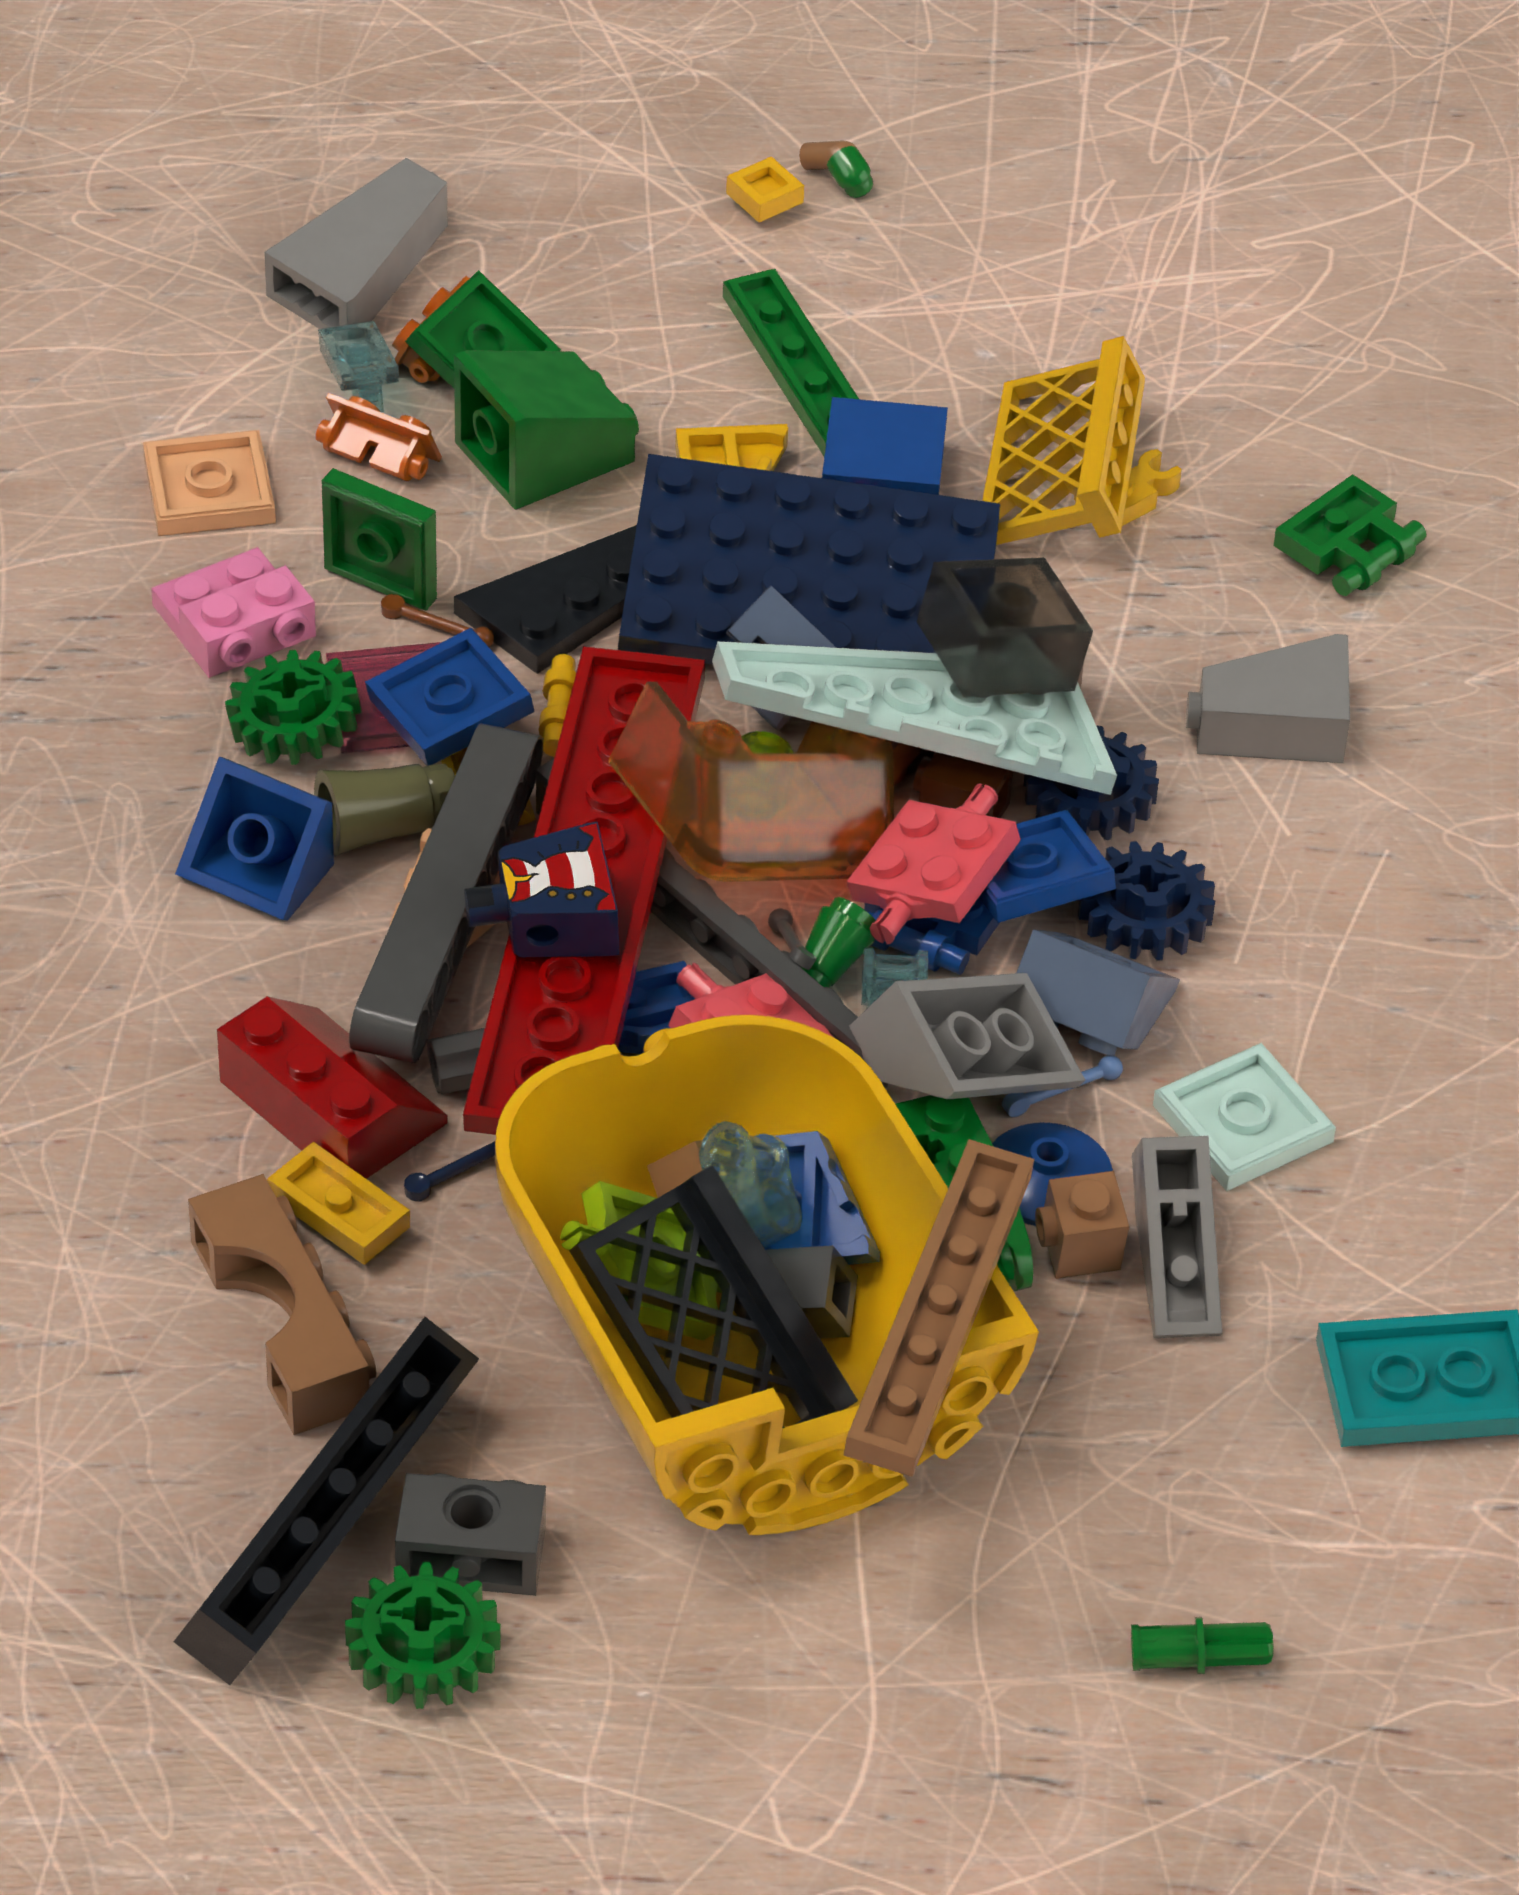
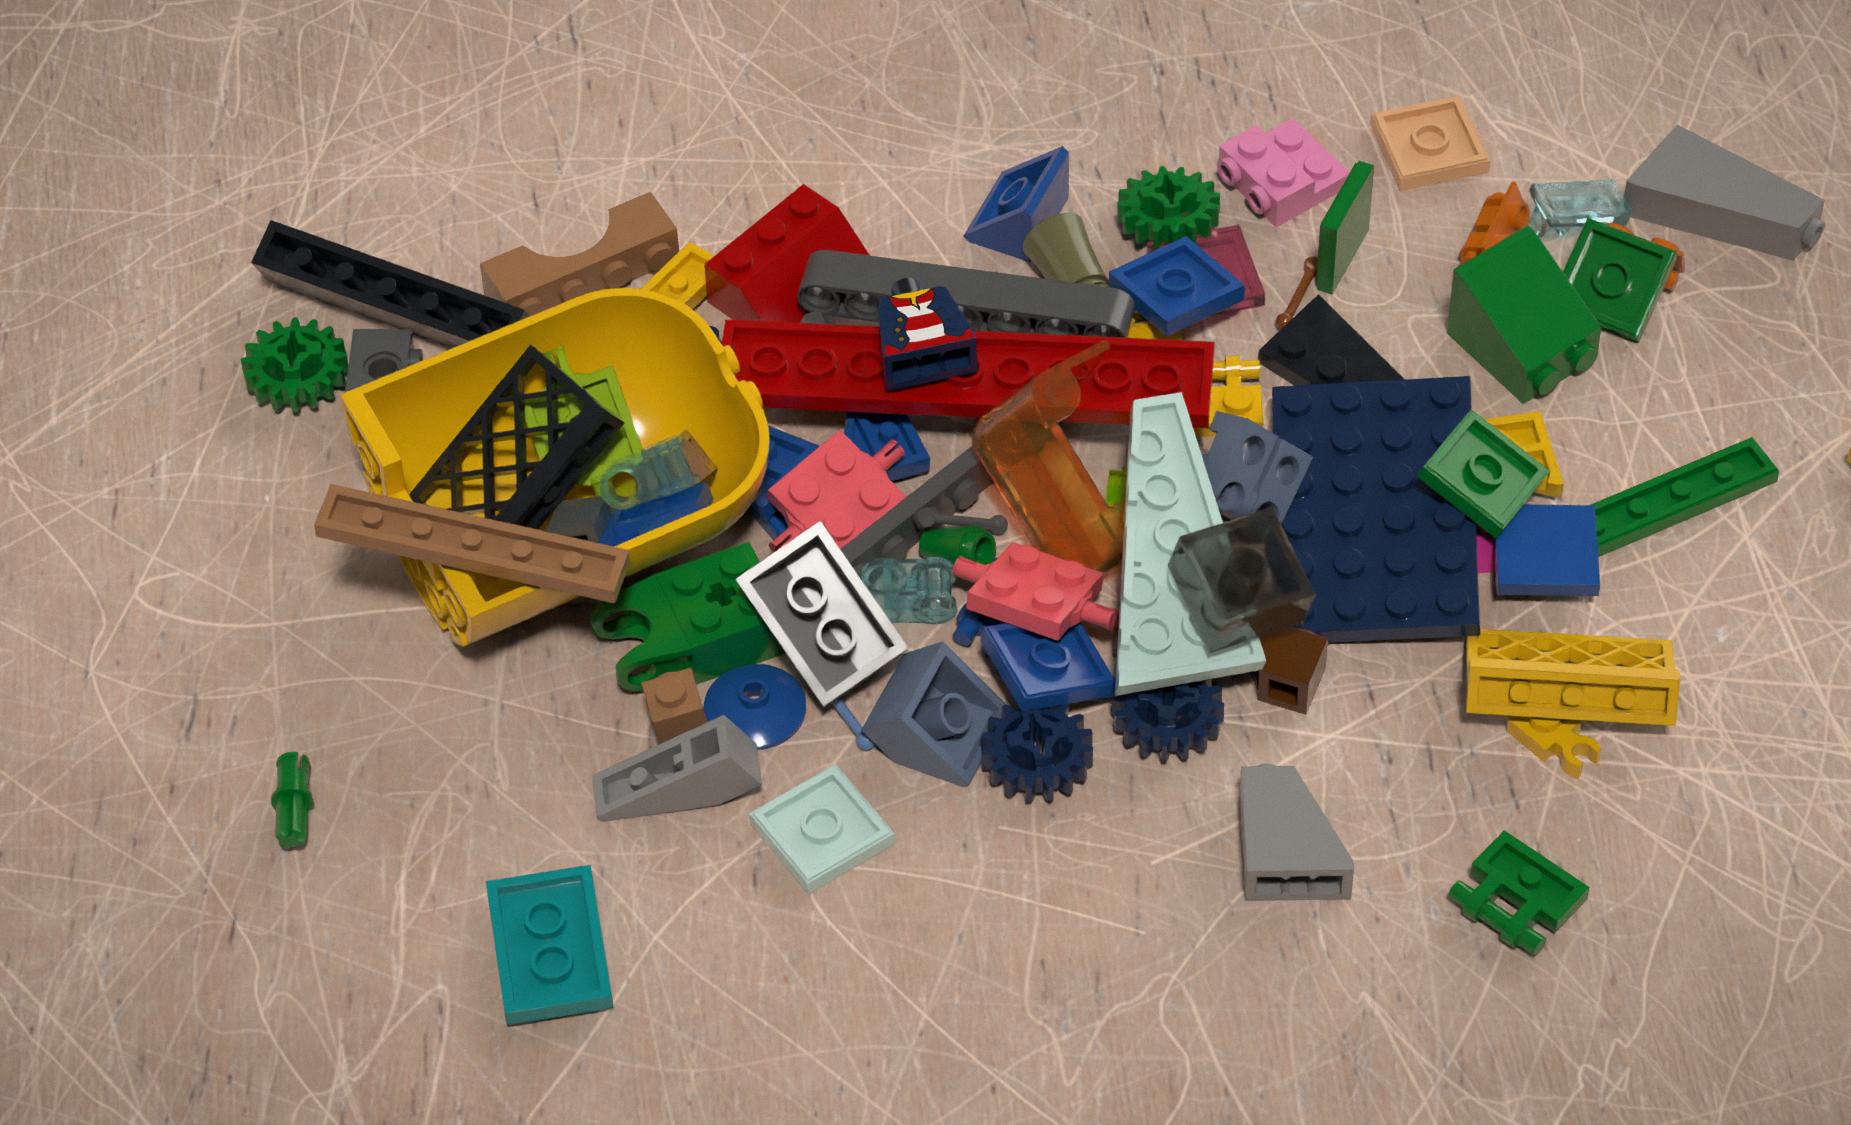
camera: 90 degrees right, 5 degrees up
(801, 458) = (1483, 473): none -> green tile

